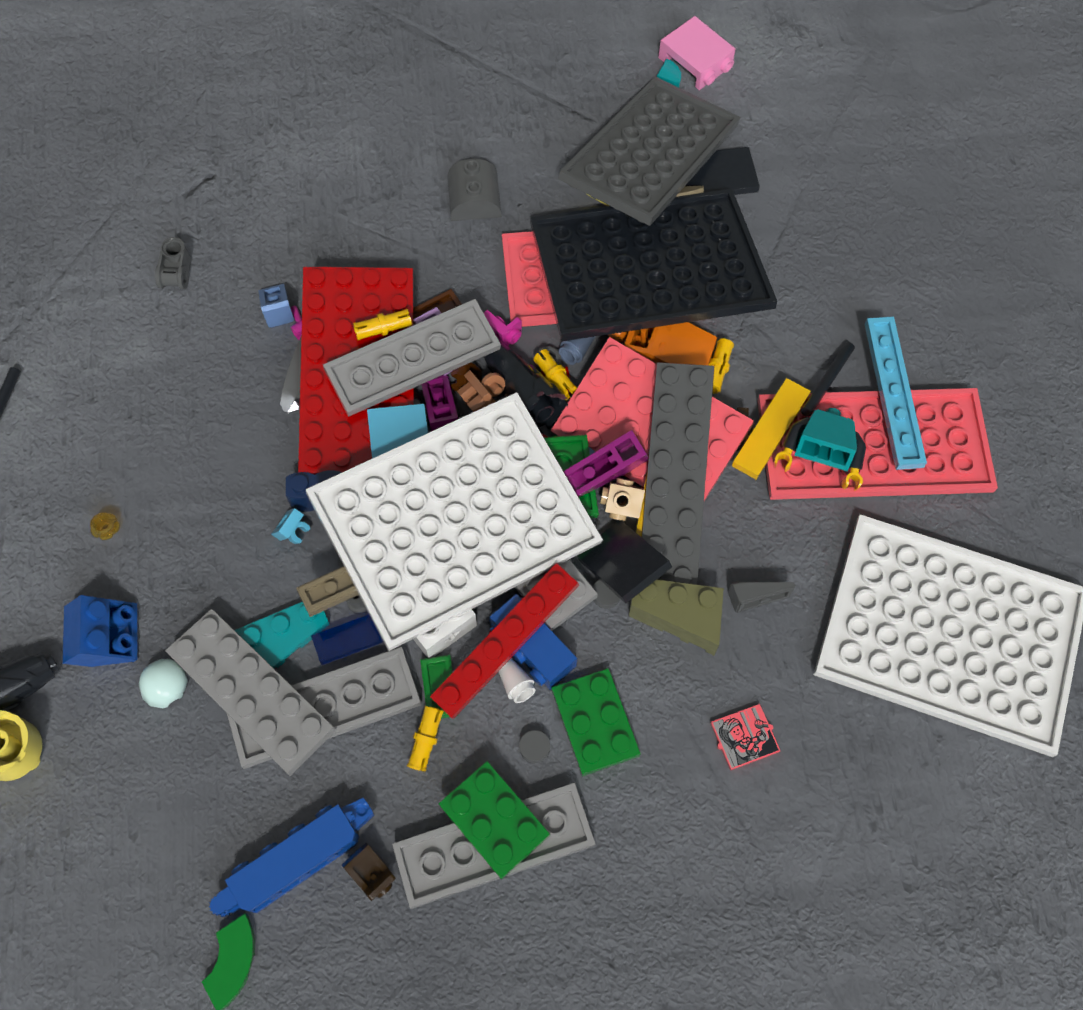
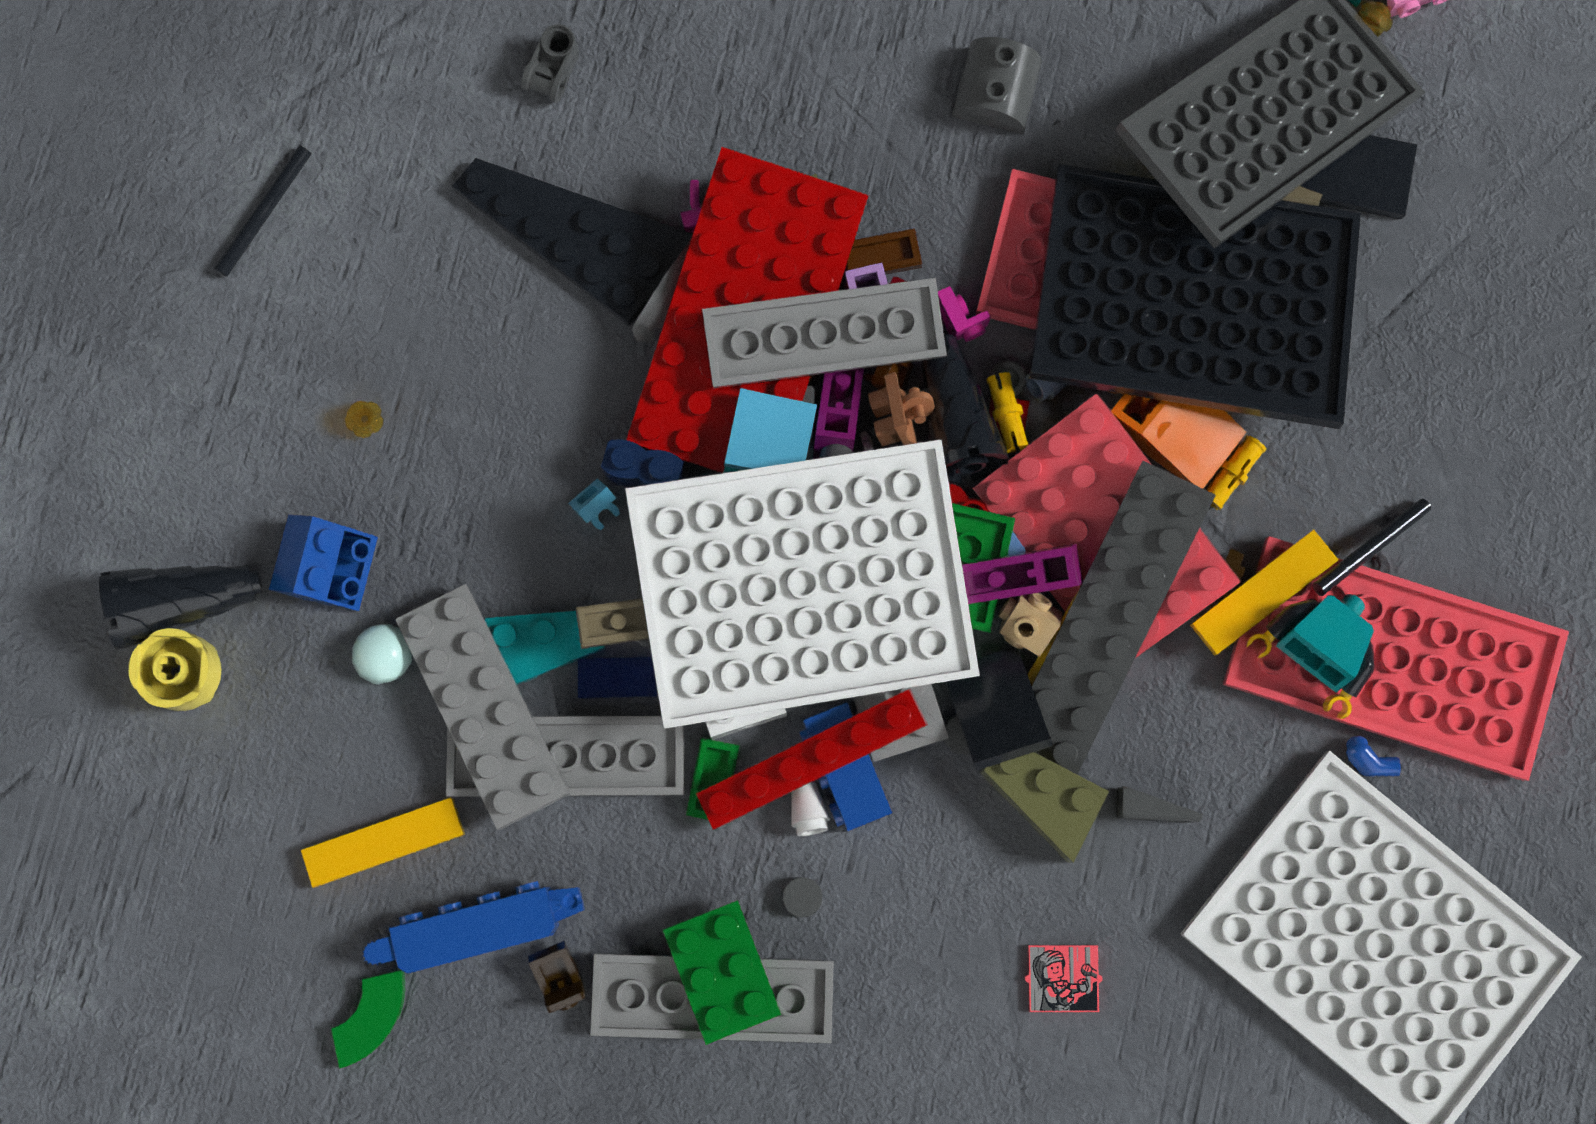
camera: 20 degrees right, 15 degrees up
(201, 822) = (382, 842): none -> yellow tile
(231, 365) = (593, 244): none -> black wing
(275, 305) = (670, 171): medium blue slope -> none
(382, 324) = (799, 272): yellow pin -> none
(425, 738) = (674, 841): yellow pin -> none
(595, 722) = (887, 893): green plate -> none
(694, 82) = (1376, 16): none -> clear yellow plate
(887, 514) = (1366, 760): none -> blue arm
(895, 393) = (1451, 601): medium azure plate -> none

